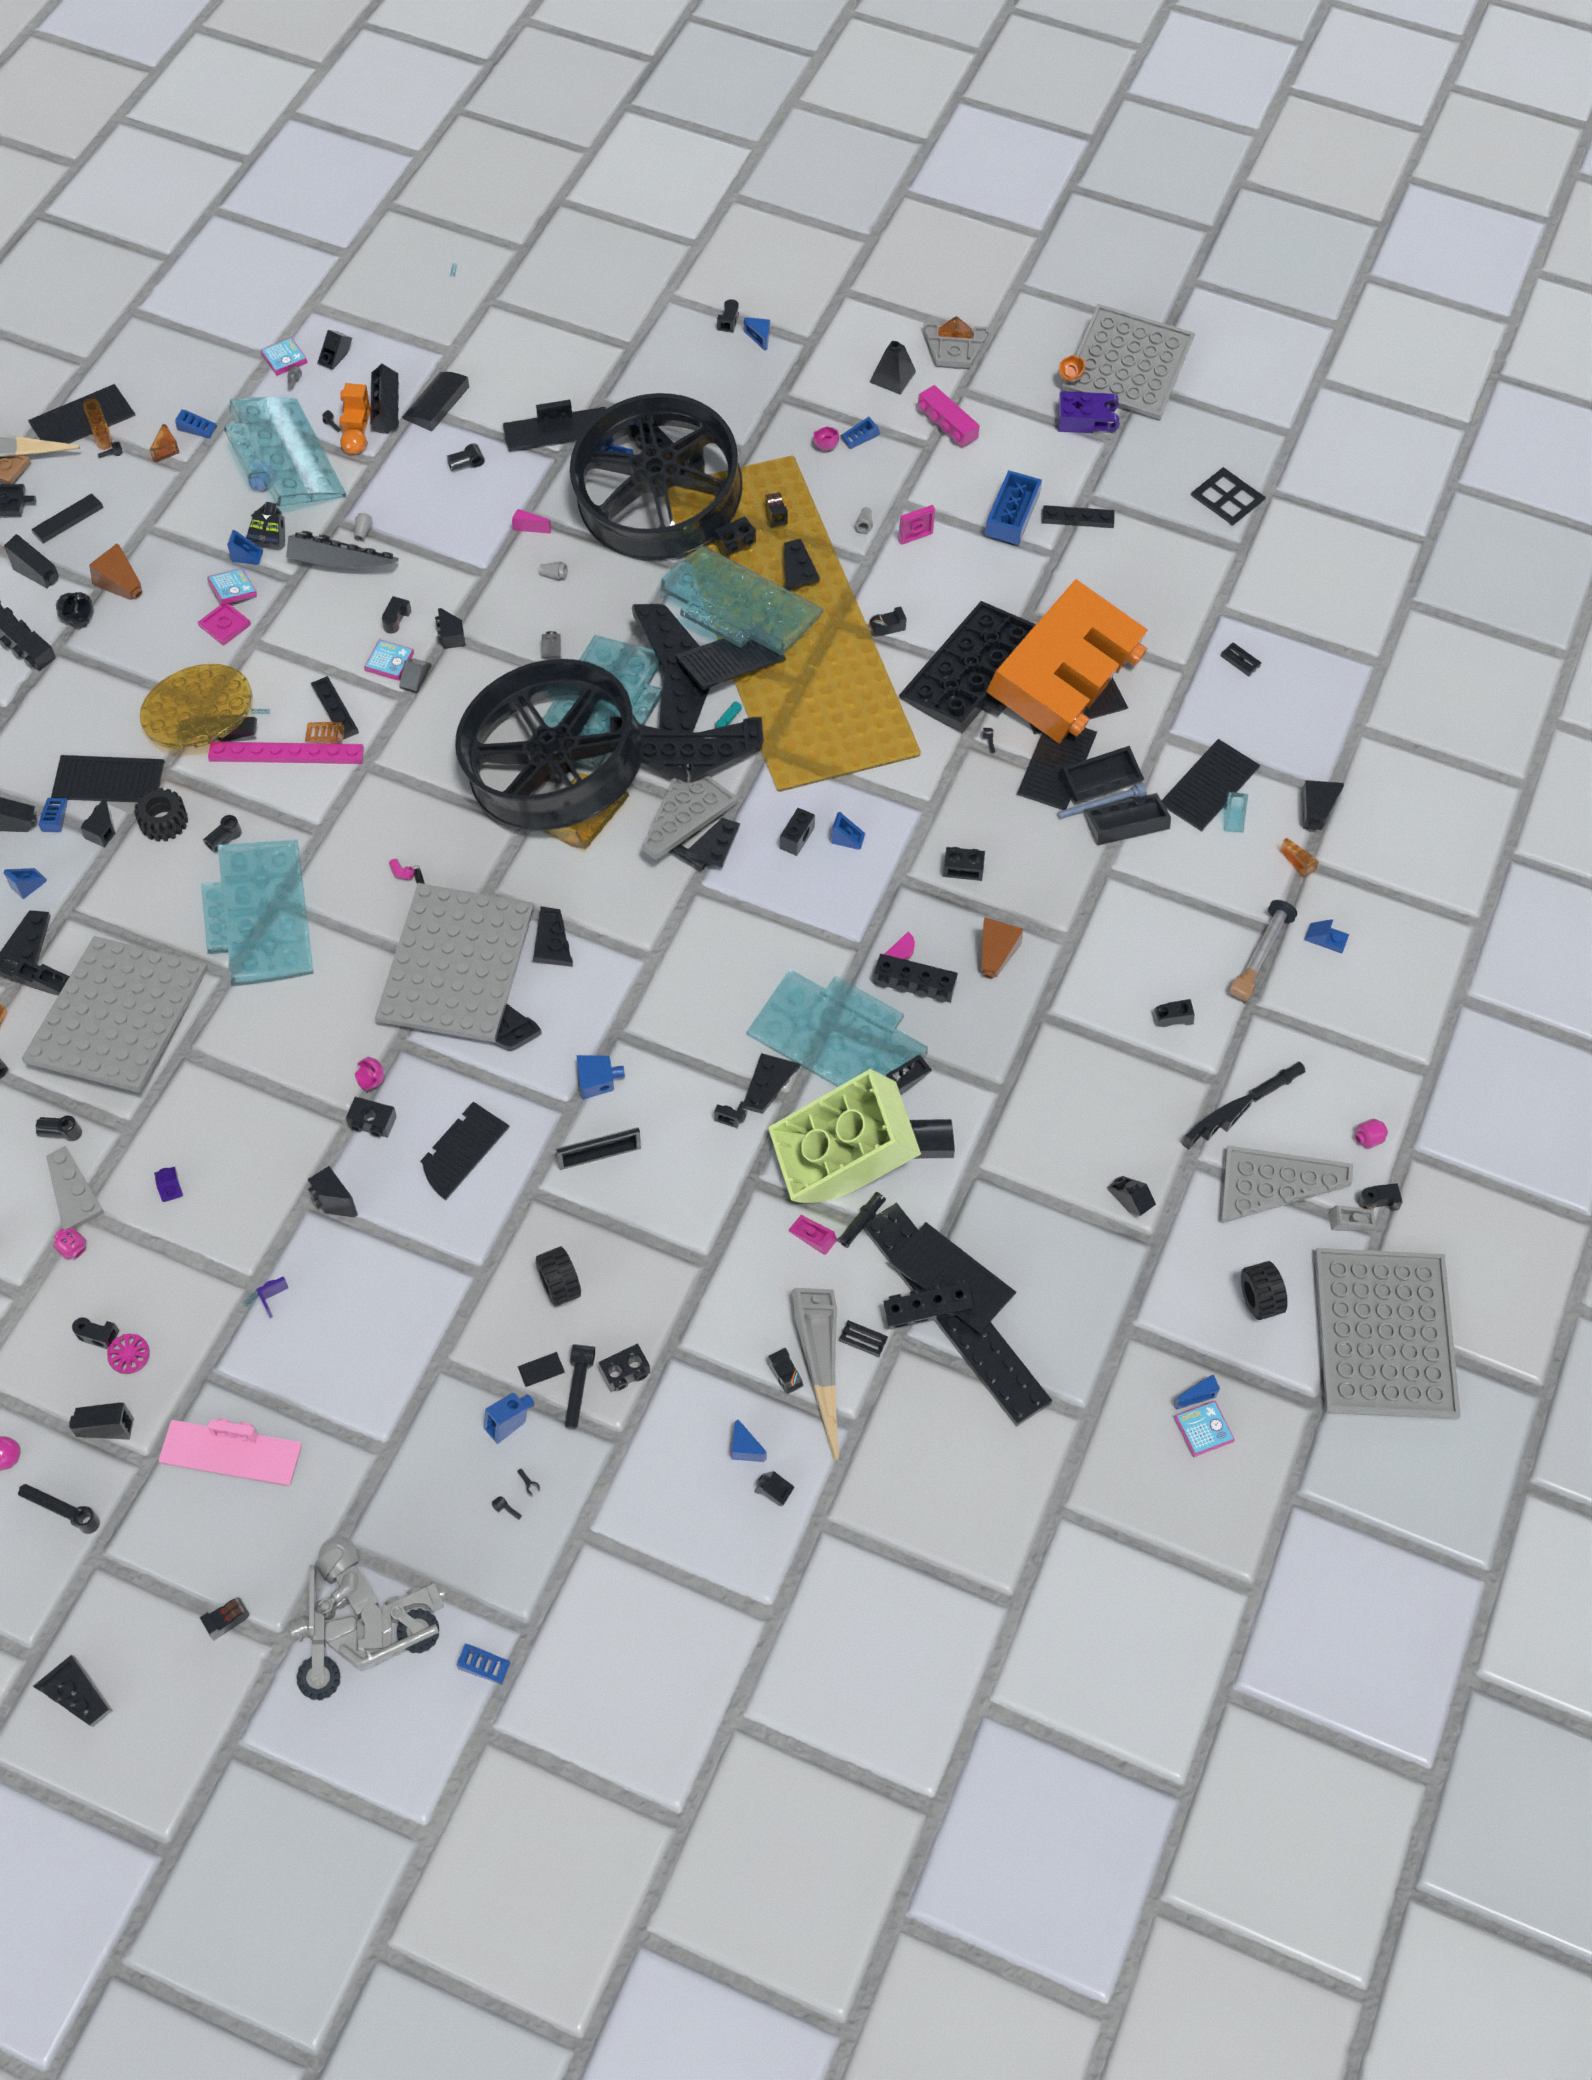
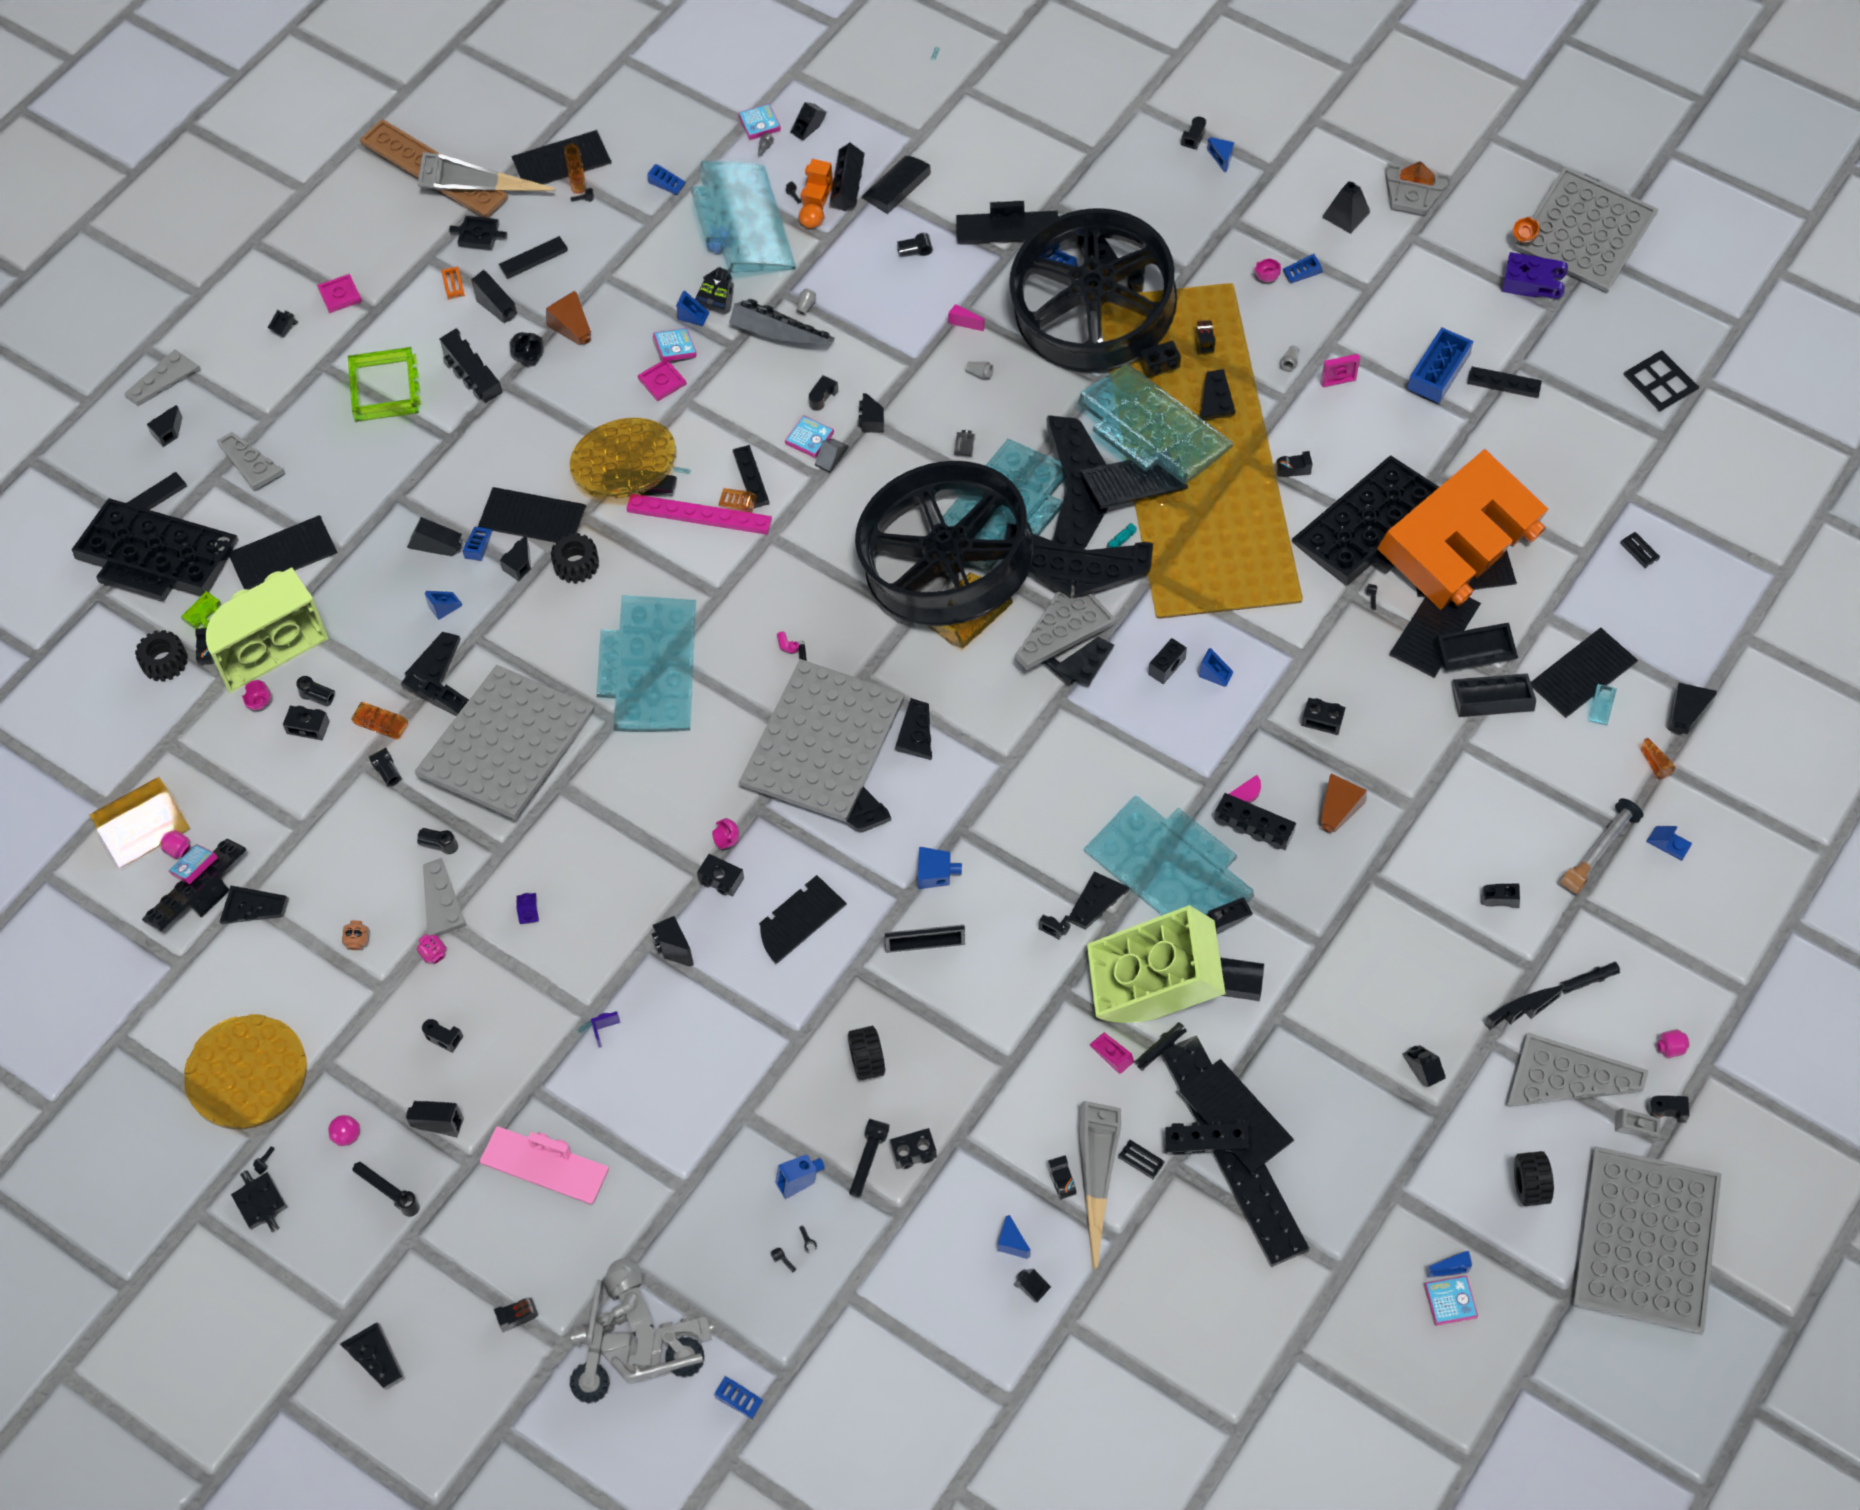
camera: 15 degrees right, 0 degrees up
(128, 1353) = (468, 1059): dark pink wheel -> none
(164, 445) = (633, 197): clear orange slope -> none
(223, 833) = (628, 584): black piece -> none
(541, 1369) = (836, 1137): black sticker -> none
(948, 415) = (1393, 262): dark pink brick -> none
(1137, 790) = (1509, 668): sand blue piece -> none

